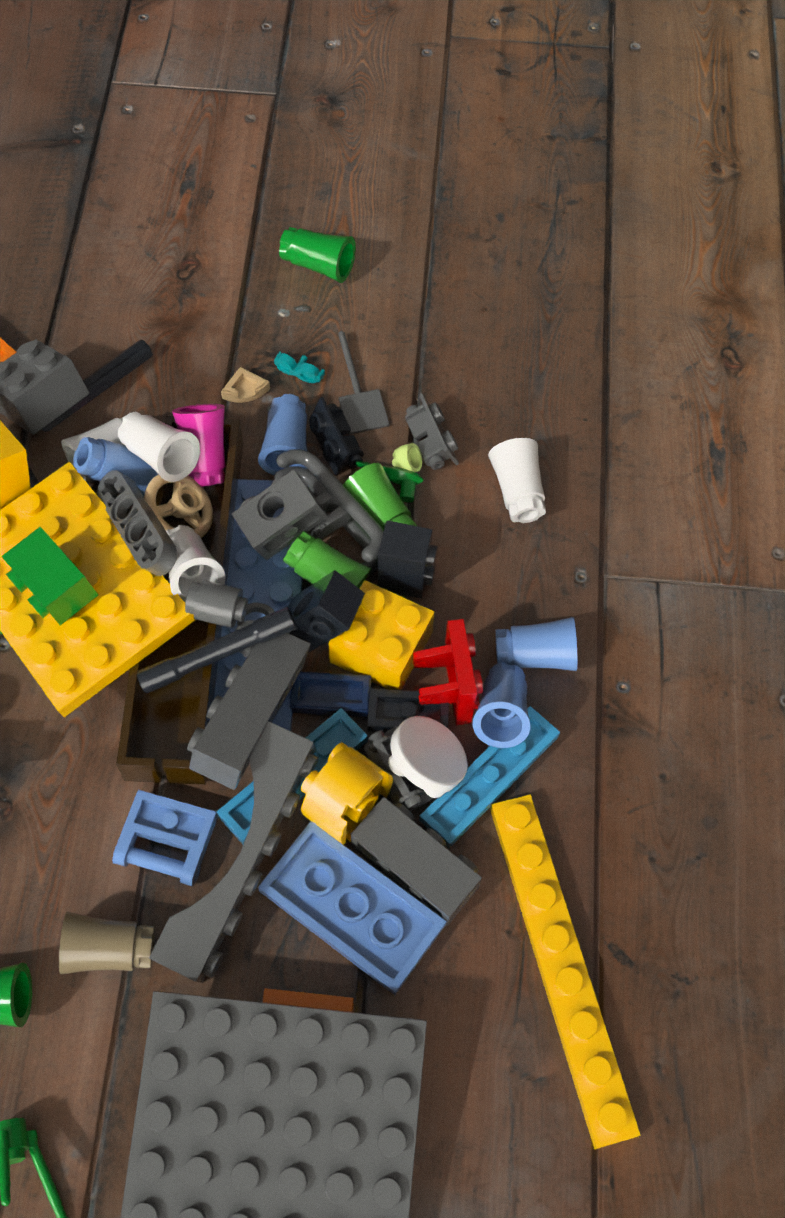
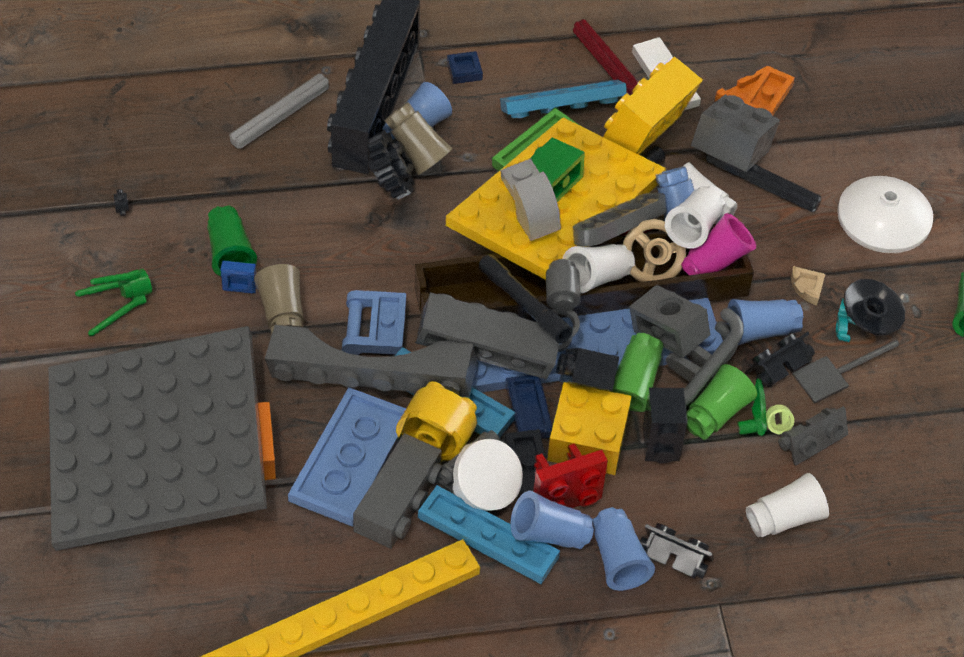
camera: 75 degrees right, 10 degrees down
(44, 994) = (238, 277): none -> blue tile
(94, 594) = (533, 198): none -> light grey brick
(176, 296) = (885, 214): none -> white dish
(299, 335) = (874, 307): none -> black dish
(554, 585) = (689, 554): none -> hinge

